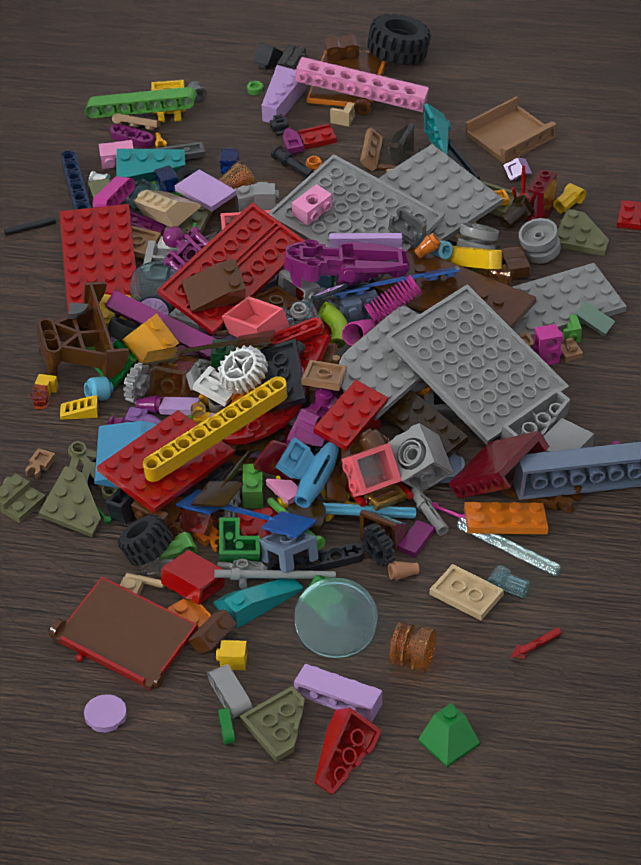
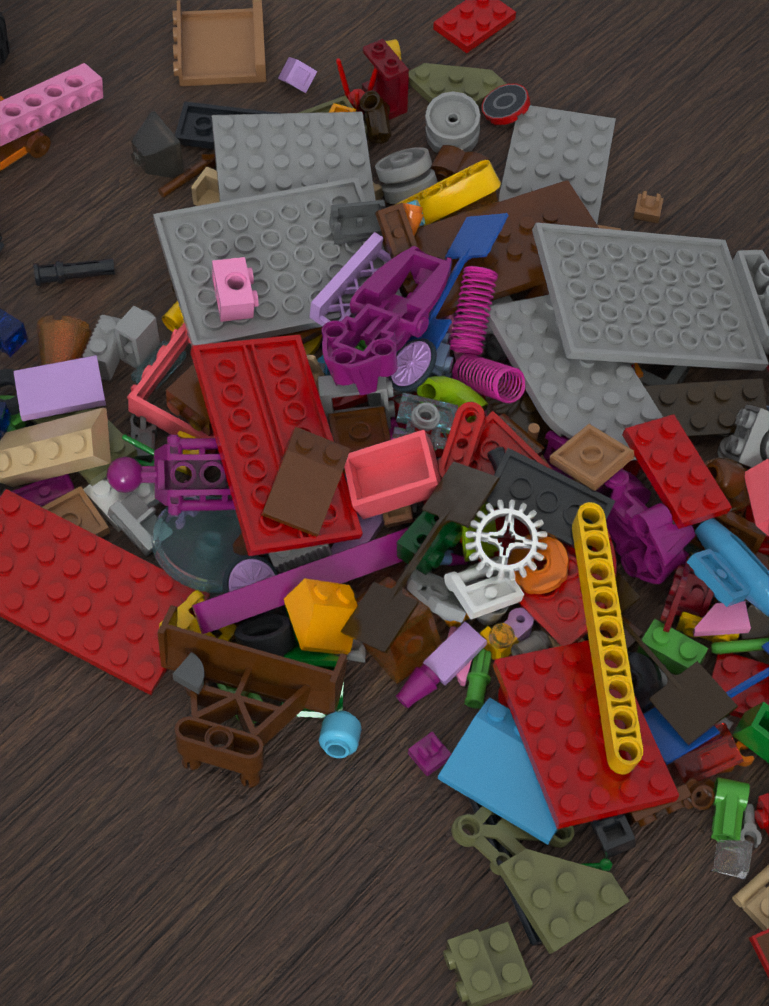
camera: 60 degrees left, 15 degrees up
(40, 461) = (433, 890): medium nougat plate -> none
(42, 390) = (290, 816): leg -> none
(85, 408) = (370, 757): yellow slope -> none
(137, 382) = (382, 679): light grey gear -> none
(139, 414) = (431, 712): medium lavender plate -> none
(145, 540) = (687, 847): black tyre -> none
(292, 141) = (31, 247): magenta plate -> none
(313, 162) = (94, 250): orange plate -> none
(317, 136) = (42, 219): red plate -> none
(343, 117) = (33, 174): tan panel -> none
(371, 149) = (127, 182): medium nougat plate -> none
(411, 240) = (396, 230): none -> reddish brown hinge
(436, 128) = (178, 103): teal wedge -> none
(548, 343) = (645, 211): dark pink brick -> none
(573, 329) = (623, 183): bright green bracket -> none
(585, 255) = (505, 104): none -> tile
(594, 318) = (620, 155): sand green tile -> none

